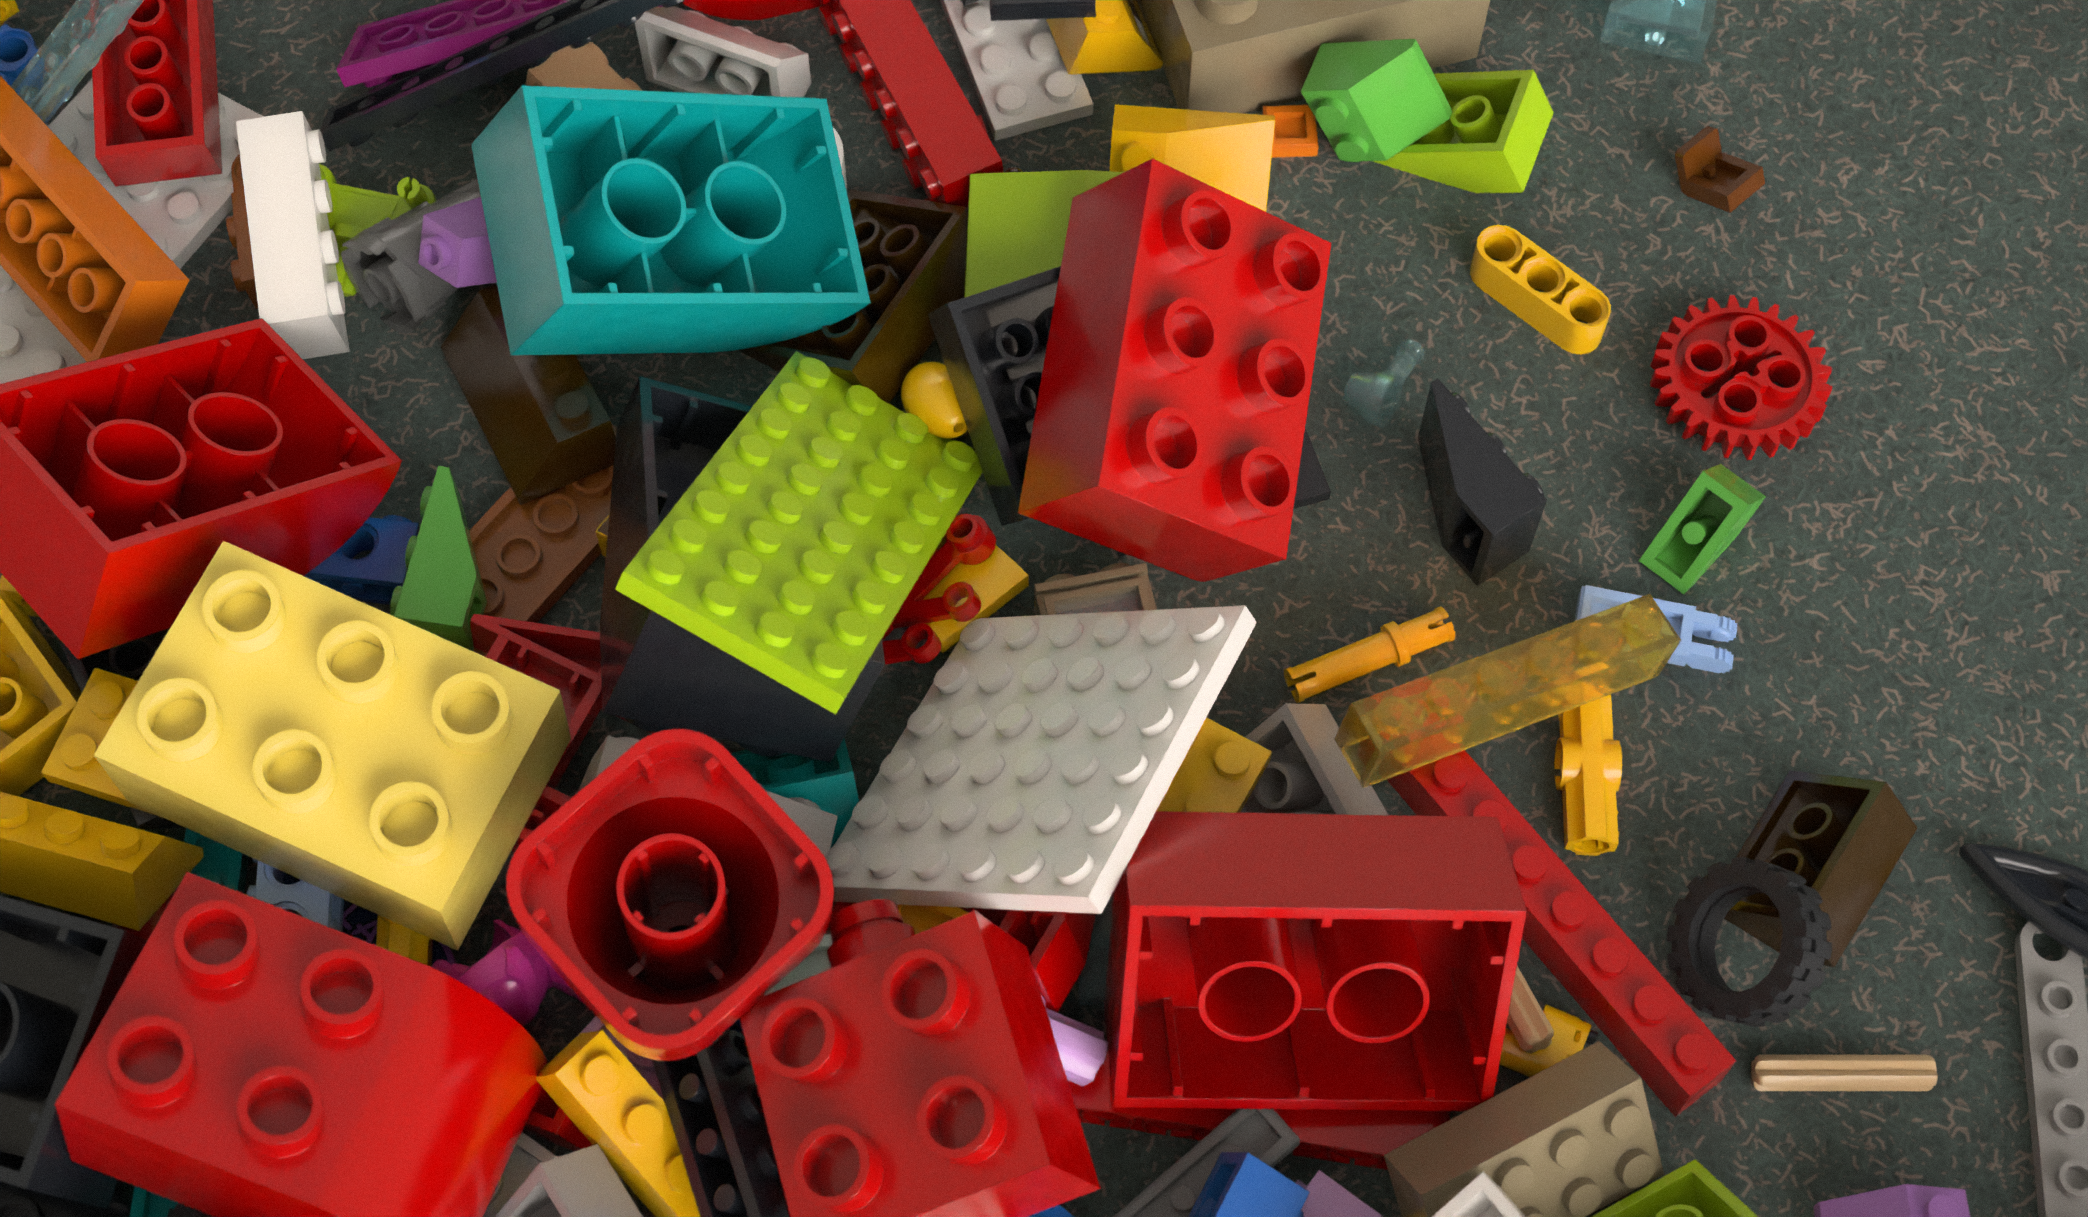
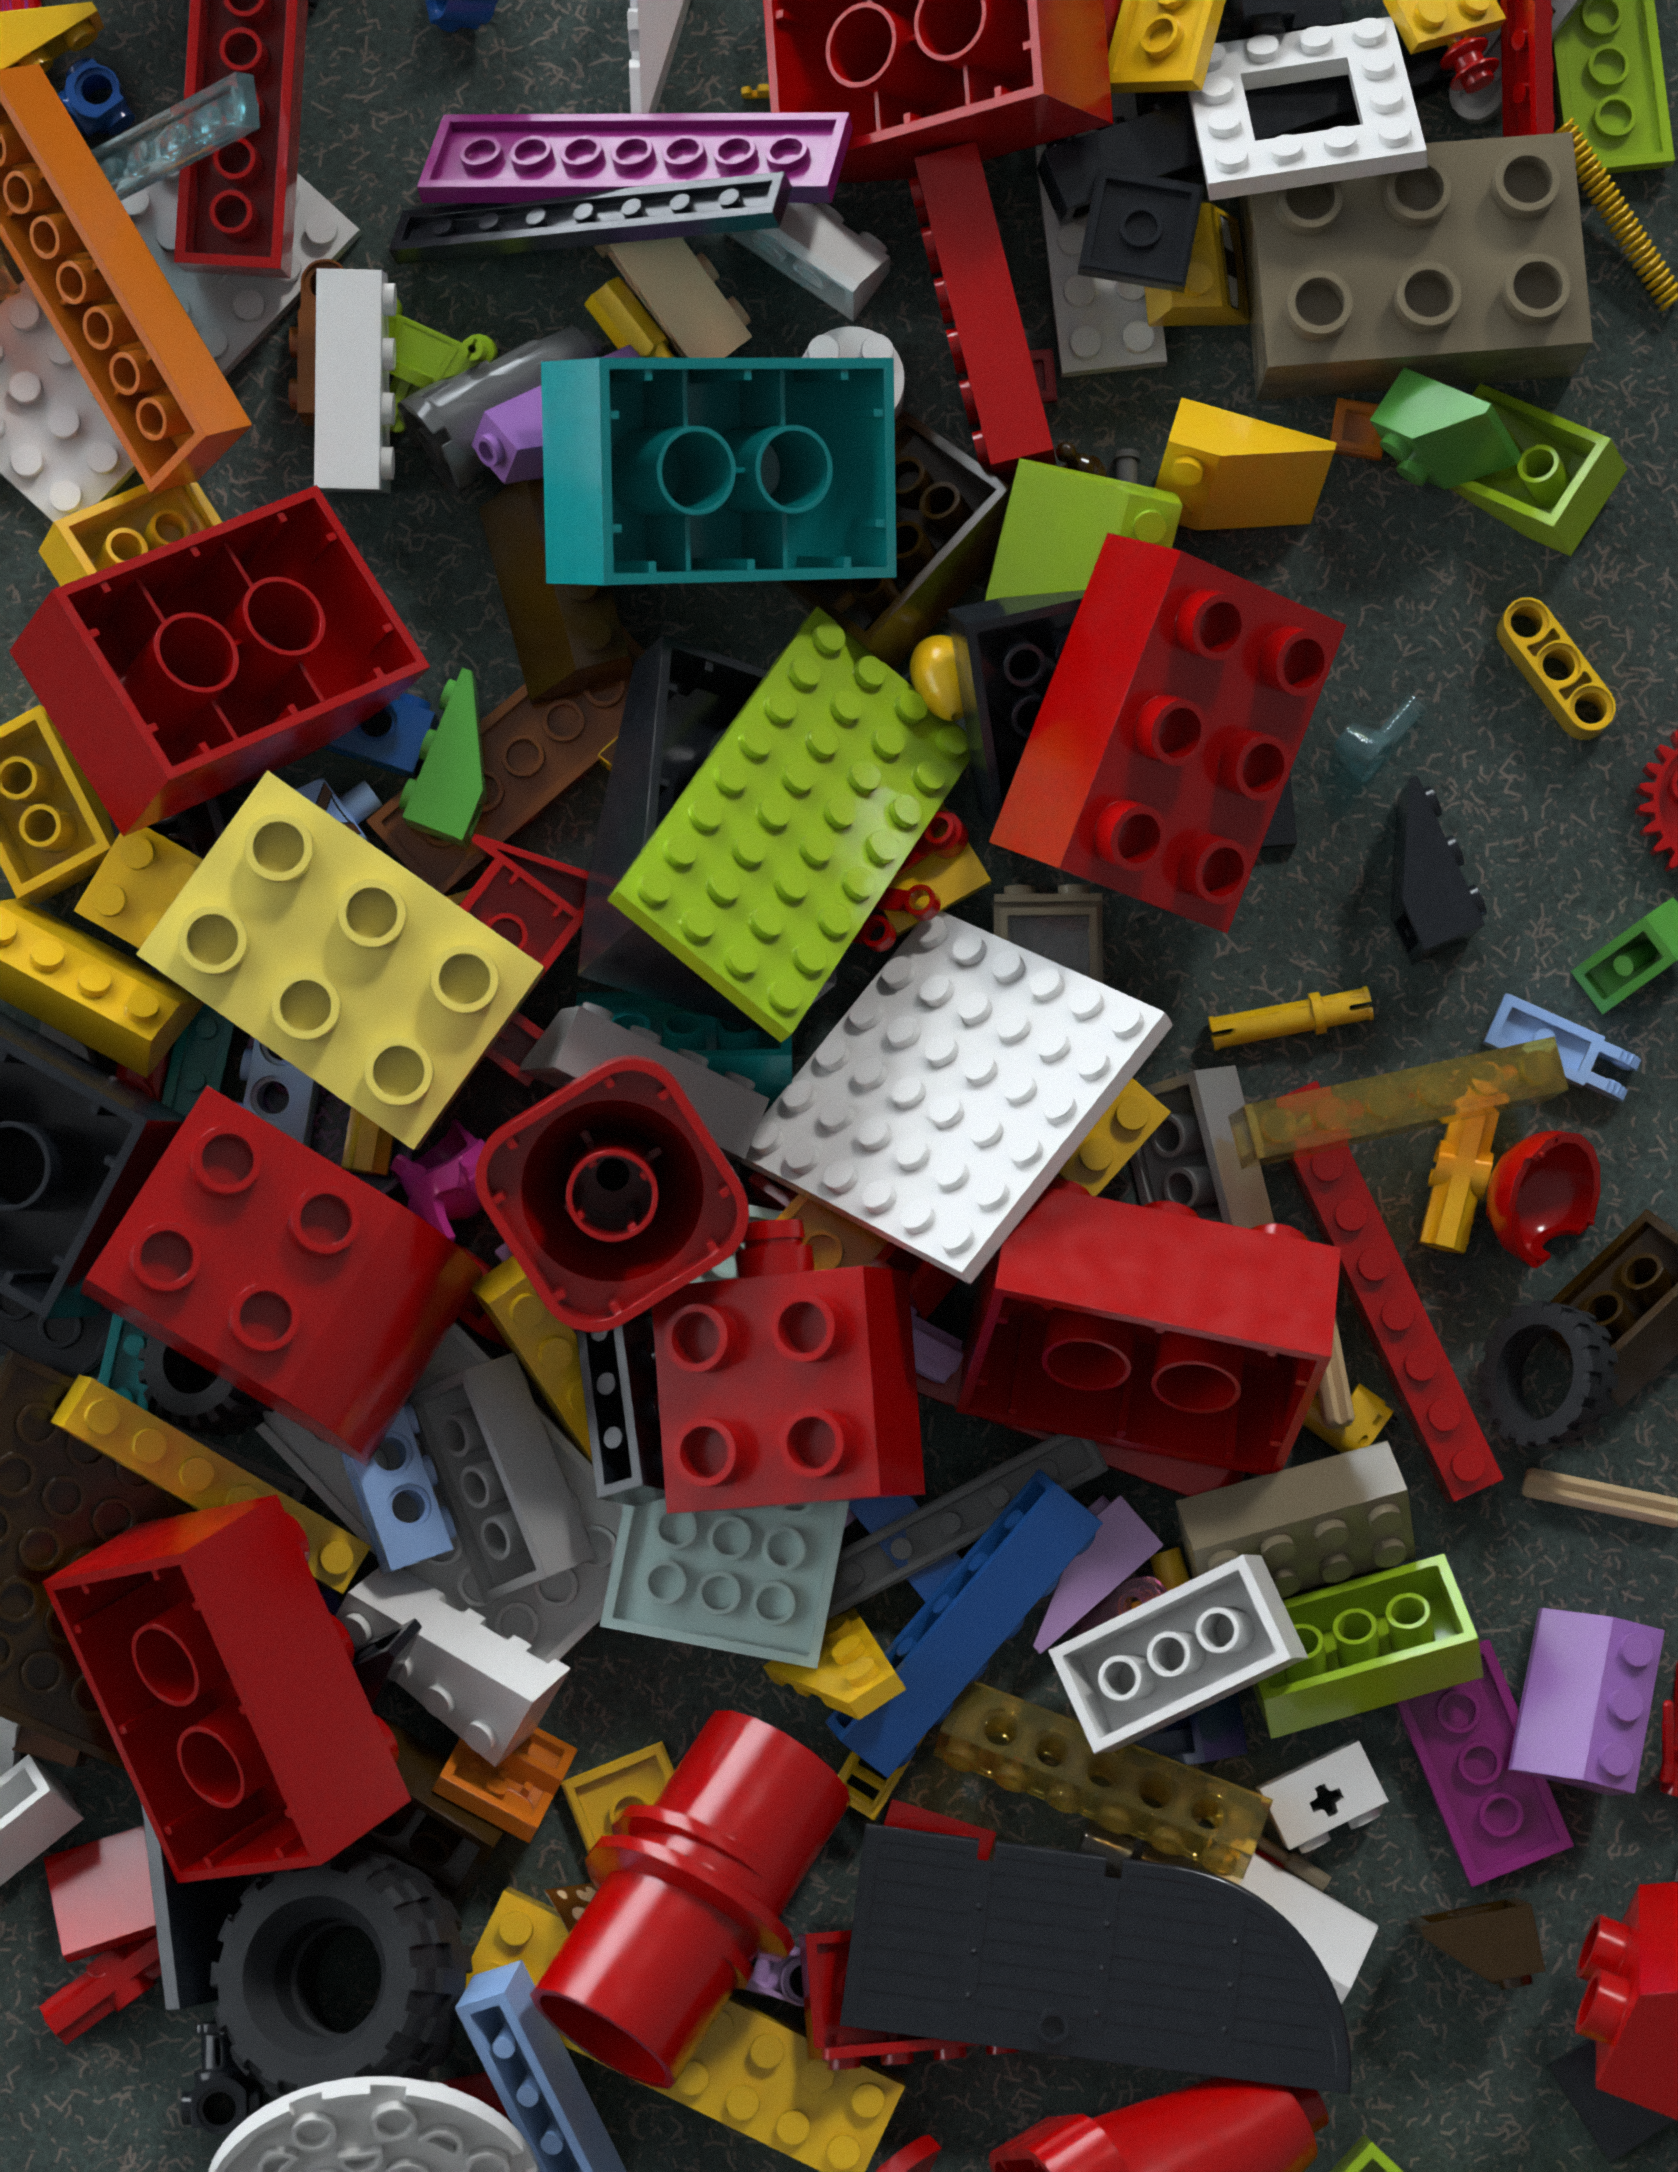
camera: 15 degrees right, 20 degrees up
(1681, 761) = (1543, 1191): none -> red cylinder

